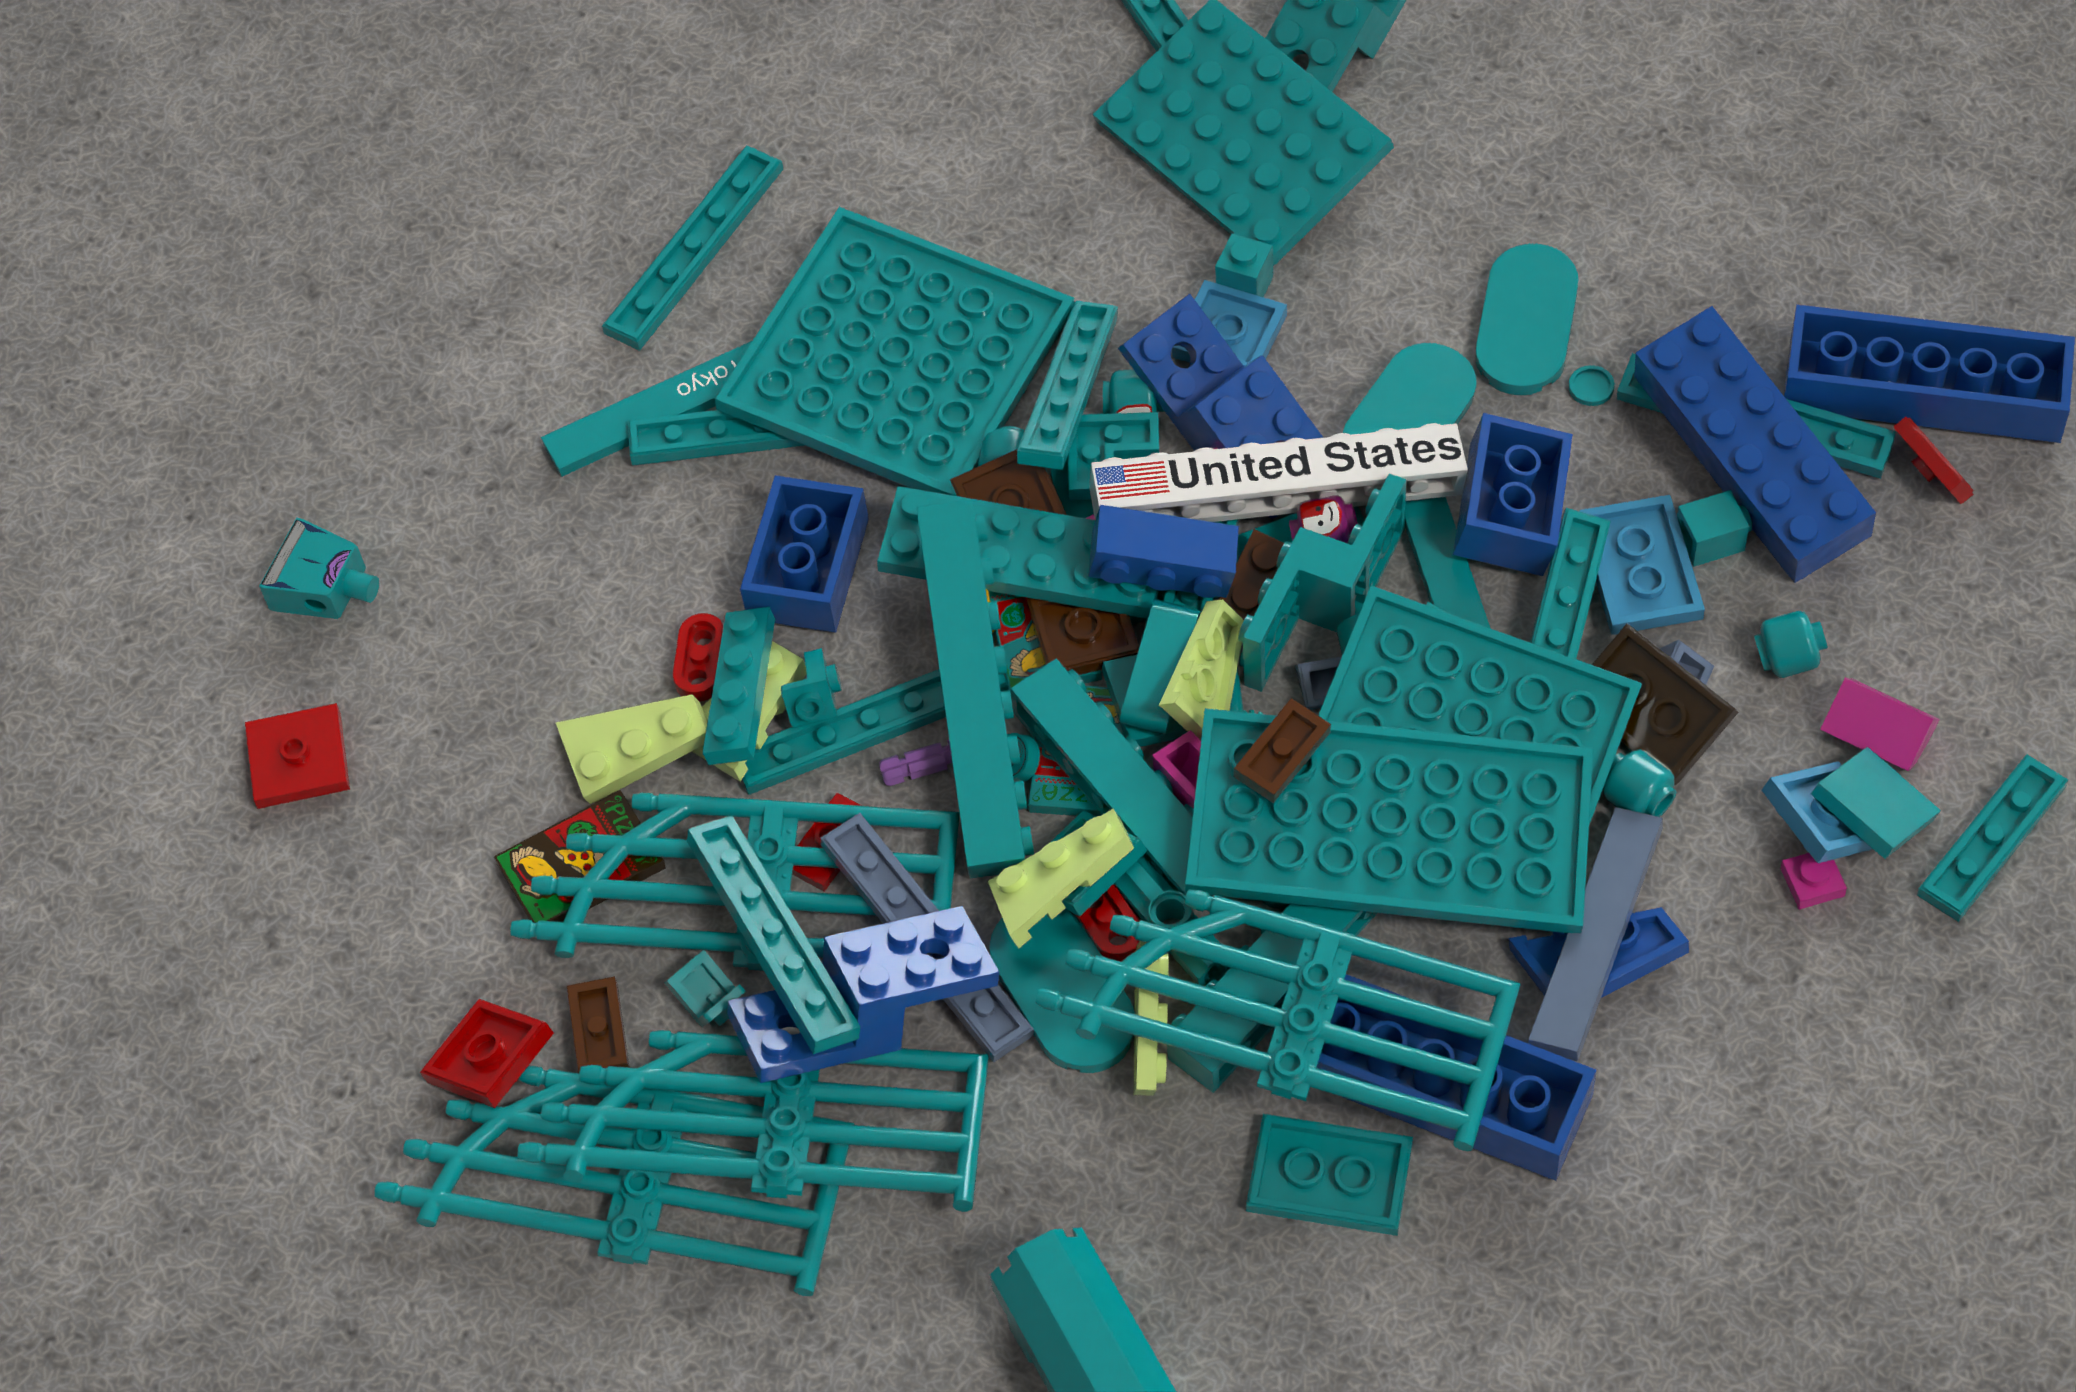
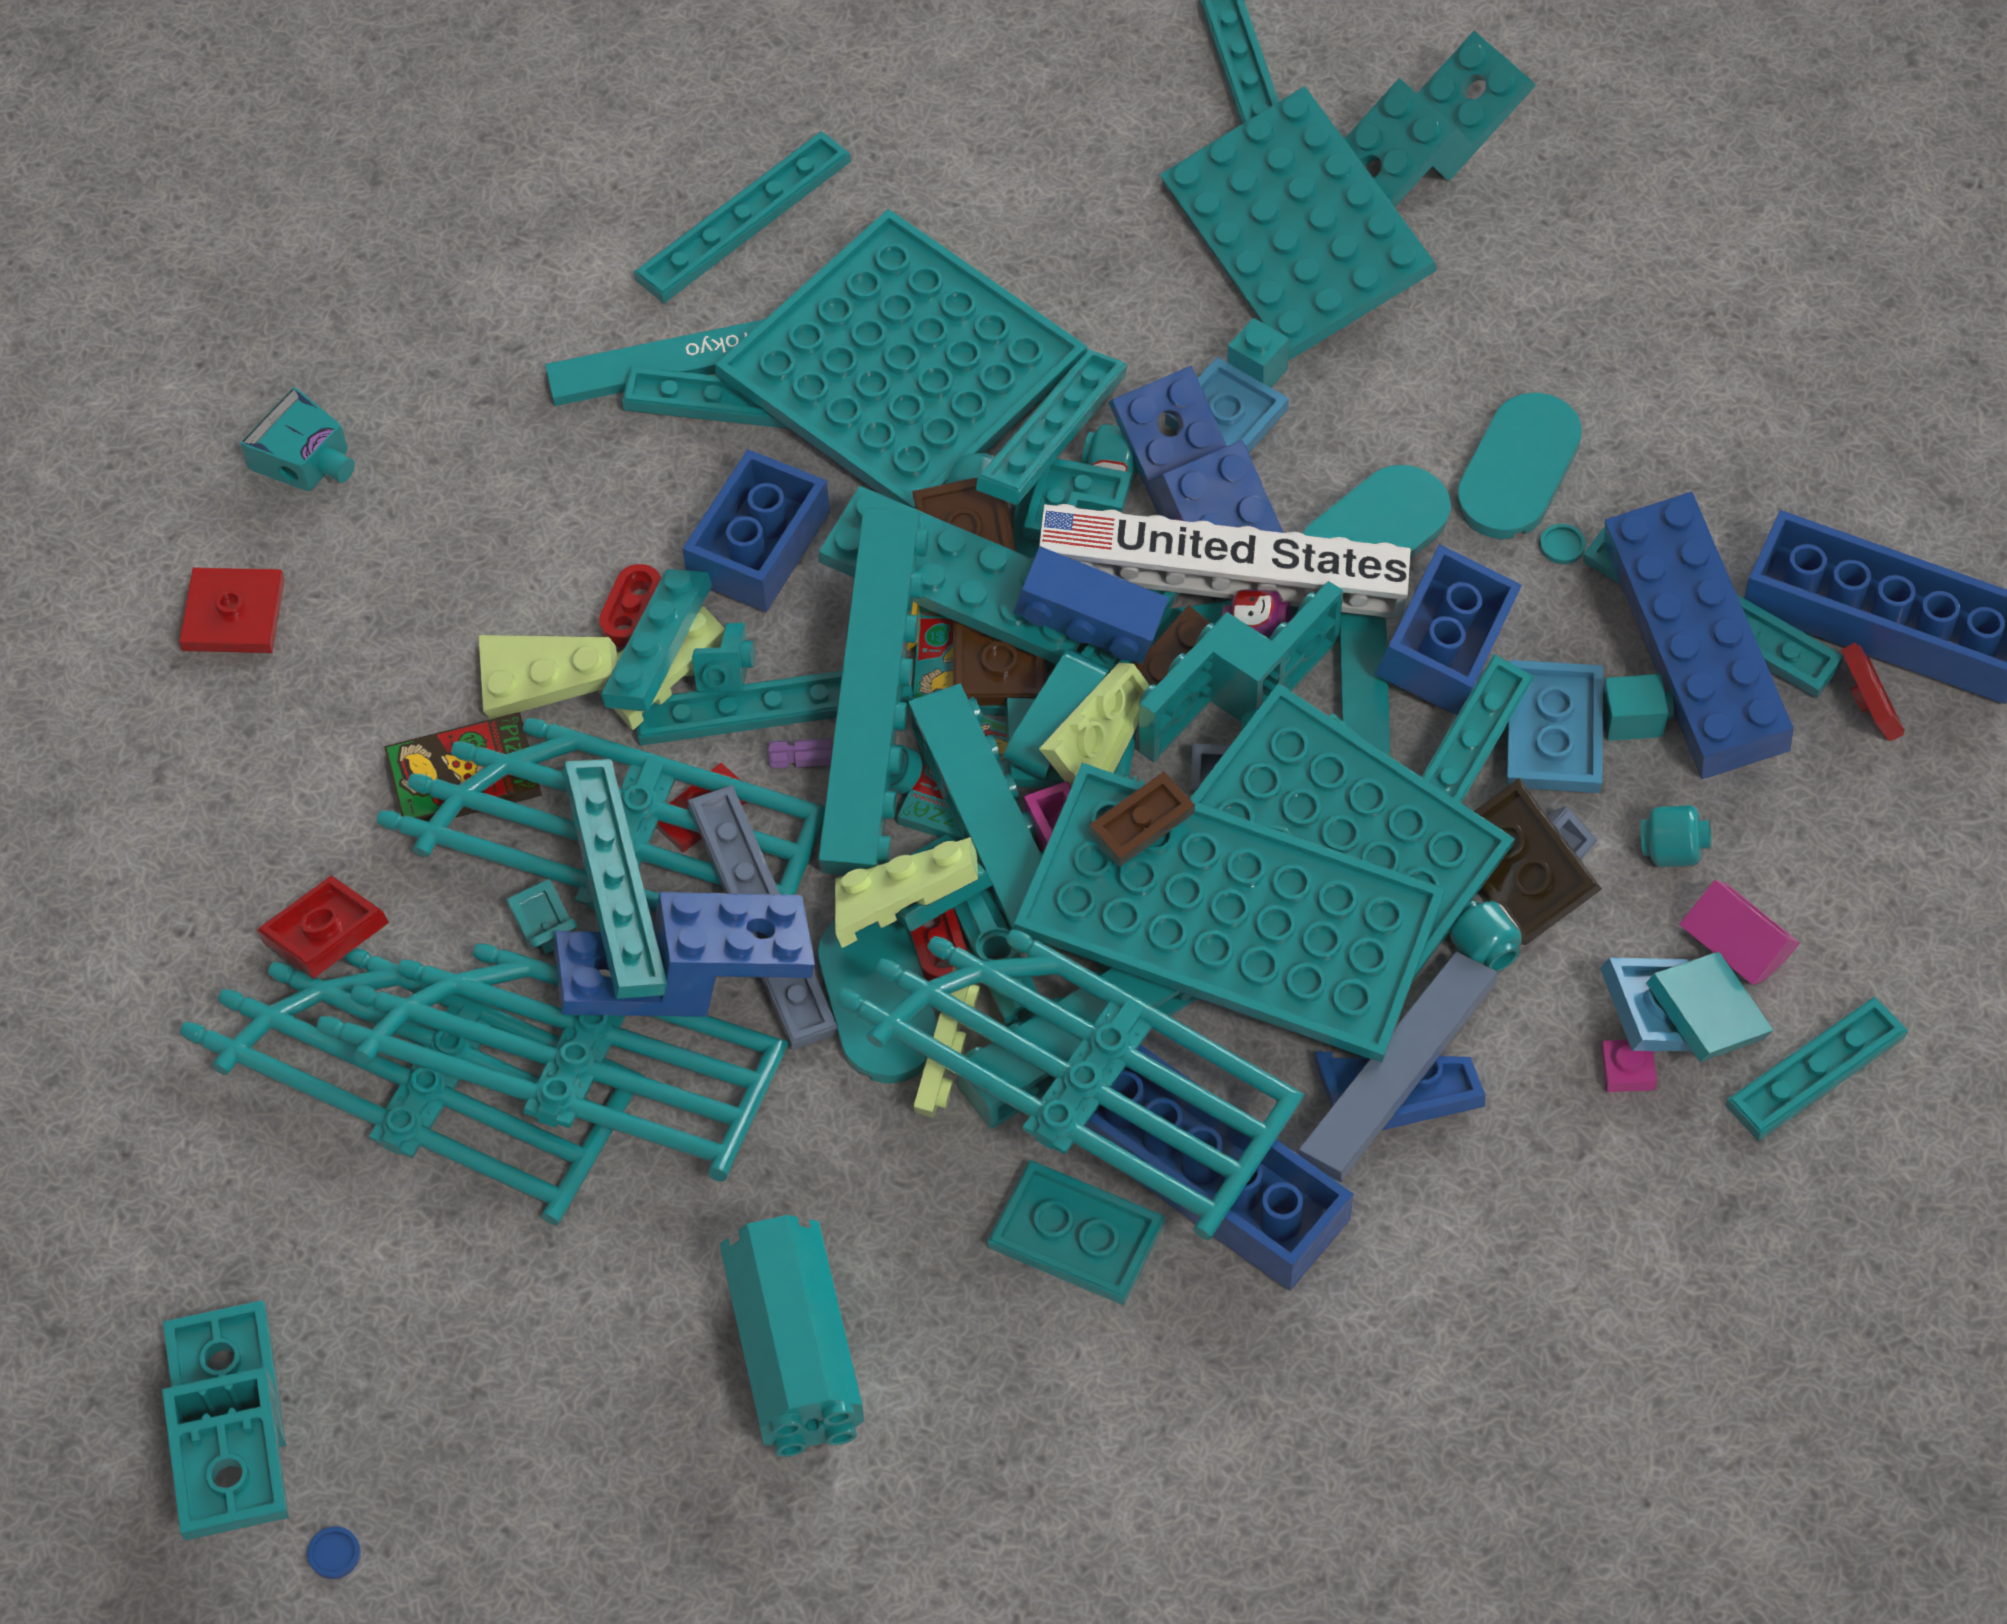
camera: 10 degrees right, 0 degrees up
(598, 1023) = (434, 924): reddish brown plate -> none

